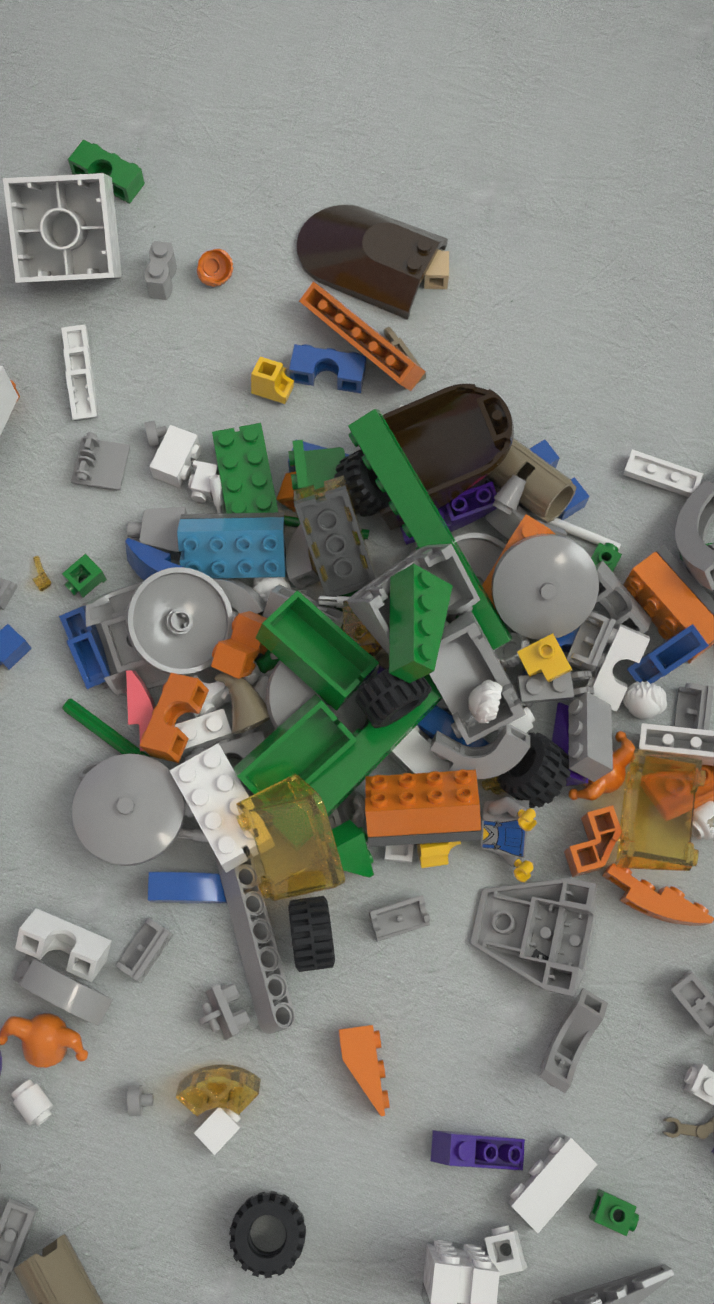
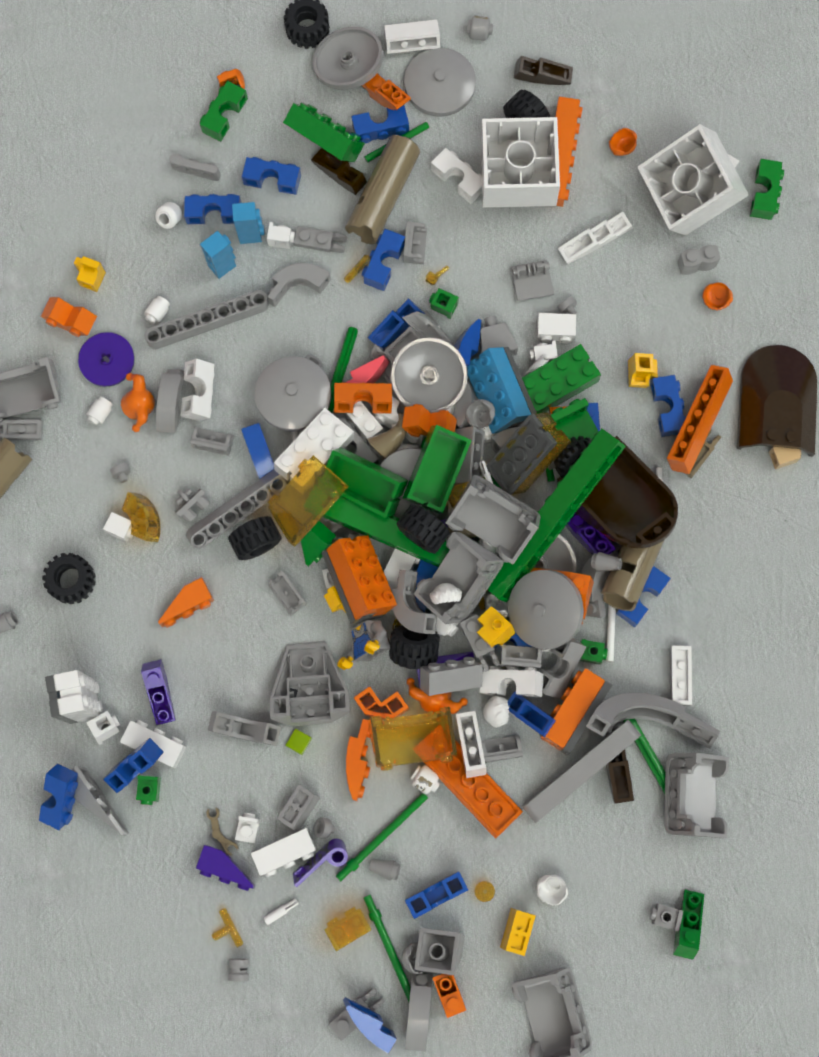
camera: 75 degrees right, 5 degrees up
(257, 575) = (480, 413): none -> light grey hair
(416, 621) = (475, 522): green wedge -> none
(577, 1207) = (135, 763): none -> blue arch
(607, 971) = (298, 741): none -> lime slope

